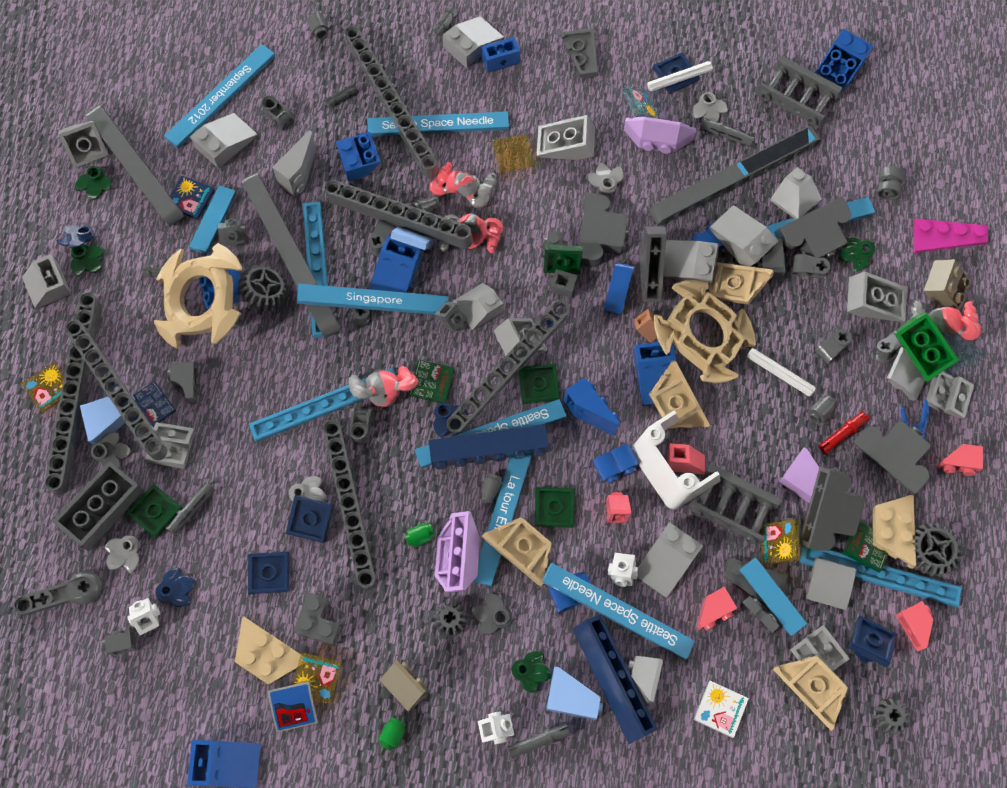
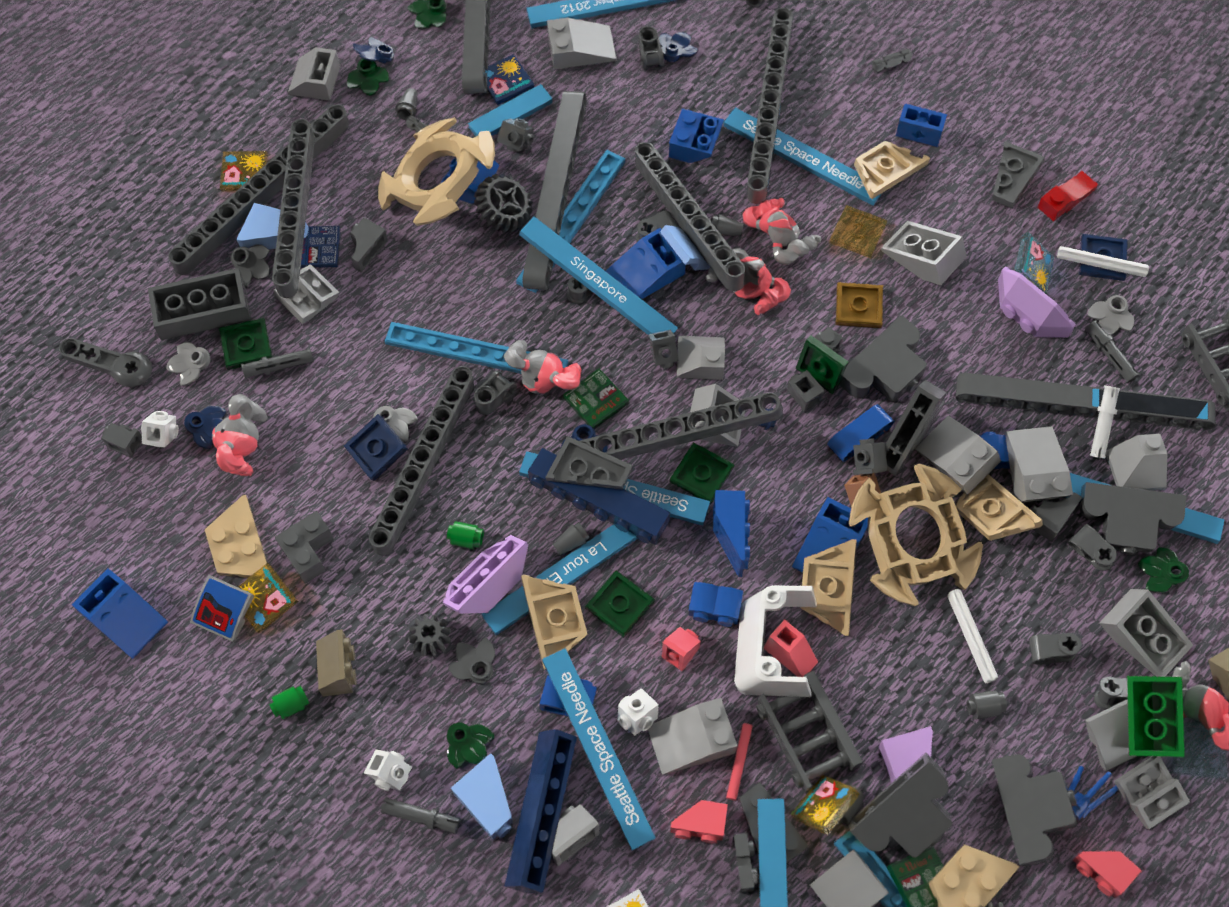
camera: 40 degrees right, 5 degrees down
(133, 260) = (407, 104): none -> dark grey cone
(208, 579) = (238, 435): none -> hair
(268, 573) = (300, 471): dark blue tile -> none
(293, 98) = (676, 46): none -> dark blue plate
(295, 166) = (628, 108): light grey slope -> none
(341, 96) = (726, 71): dark grey axle -> none
(467, 38) = (896, 87): light grey slope -> none
(469, 431) = (588, 466): none -> dark grey wing
(499, 97) = (886, 166): none -> tan wing
(551, 203) = (859, 305): none -> pearl gold tile
(606, 176) = (938, 313): light grey plate -> none
(625, 45) = (1066, 196): none -> red slope
(639, 301) = (869, 457): none -> dark grey brick
(706, 554) = (739, 762): none -> coral bar
(759, 181) = (1104, 422): none -> white pin
(850, 427) = (1003, 745): red pin -> none

